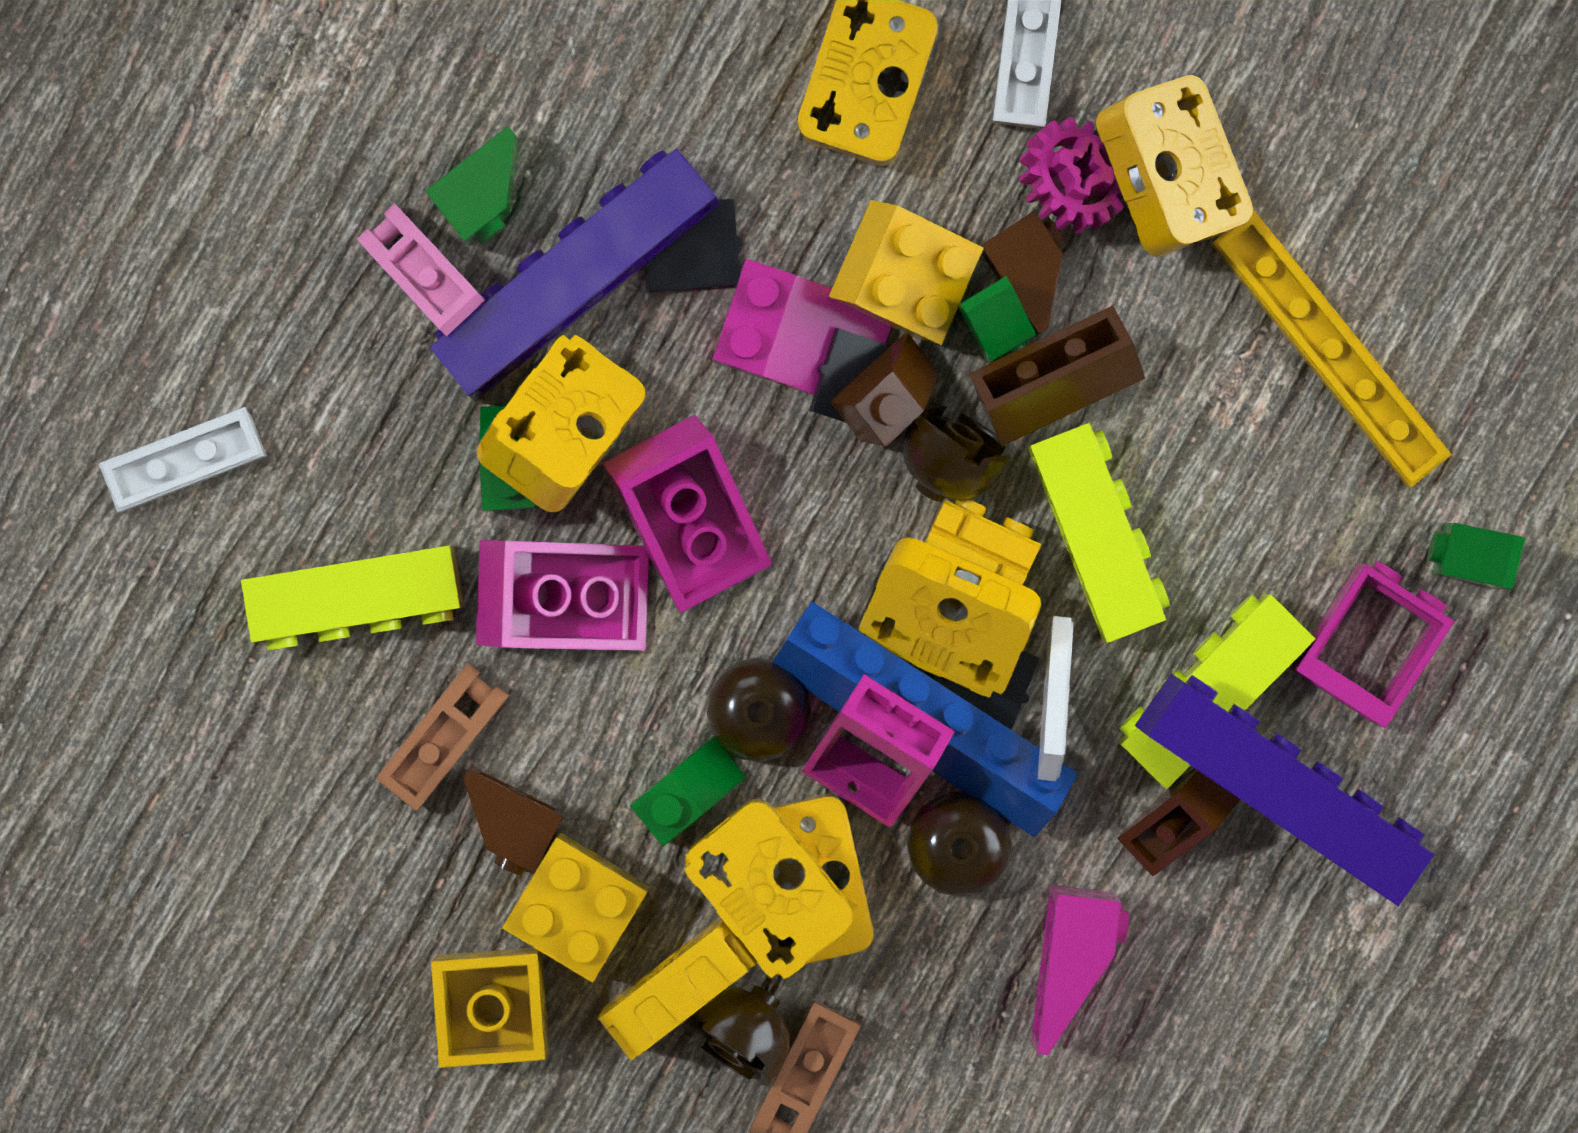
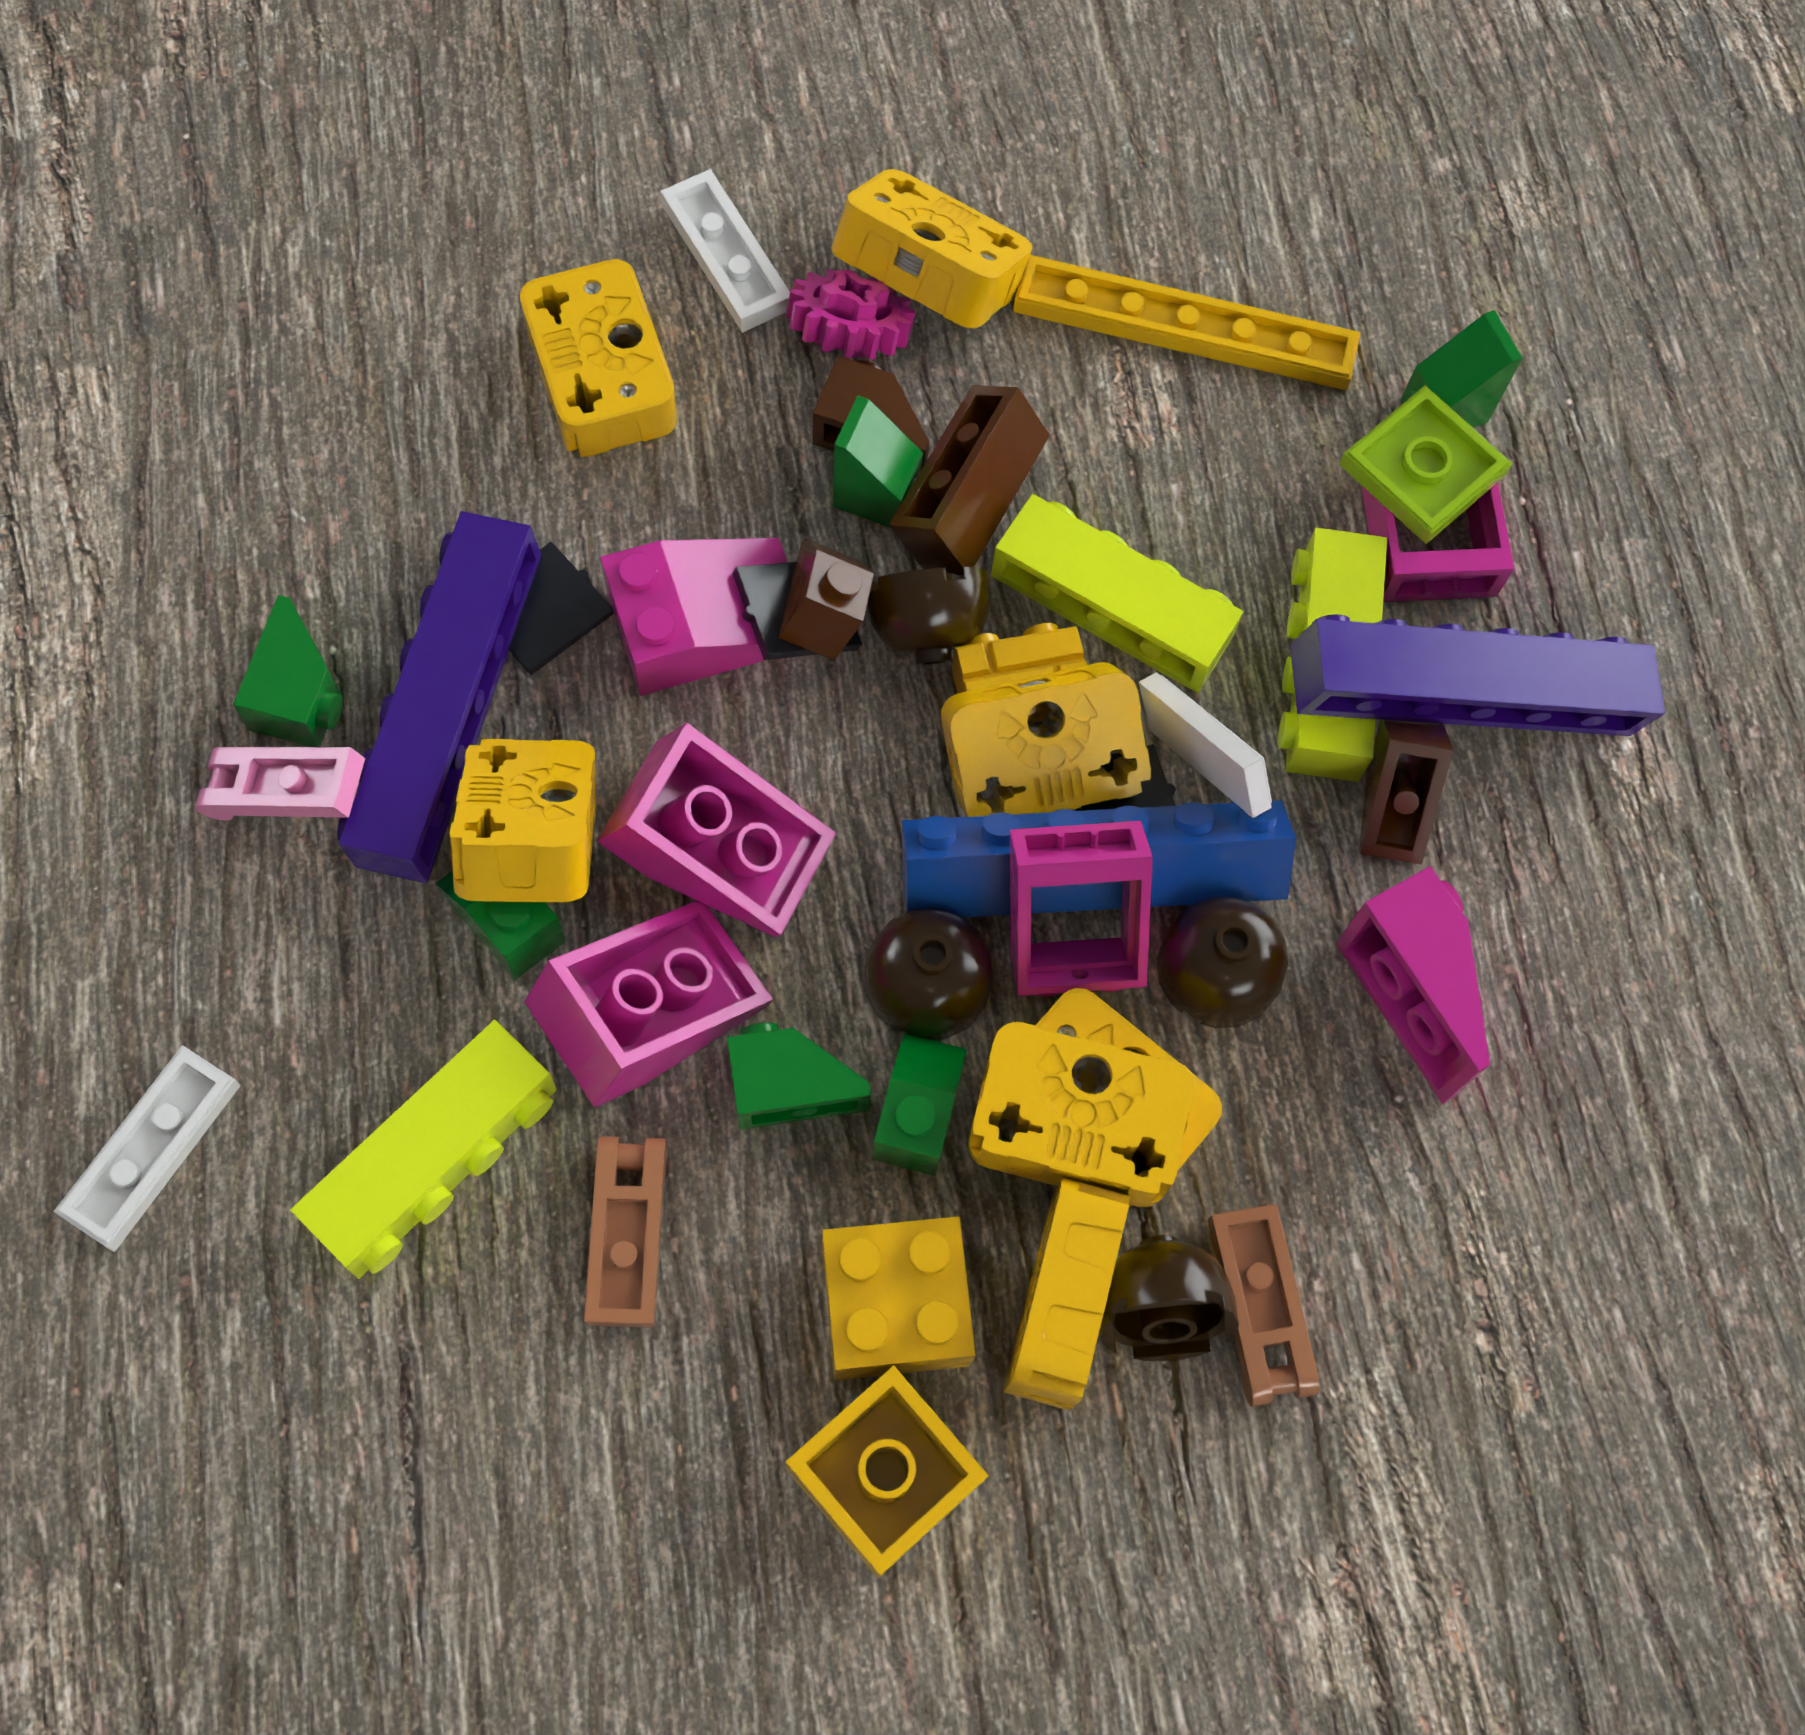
camera: 45 degrees left, 20 degrees down
(511, 821) = (763, 1260): reddish brown slope -> none
(612, 714) = (790, 1078): none -> green slope
(906, 271) = (760, 477): yellow brick -> none
(1387, 607) = (1425, 464): none -> lime tile

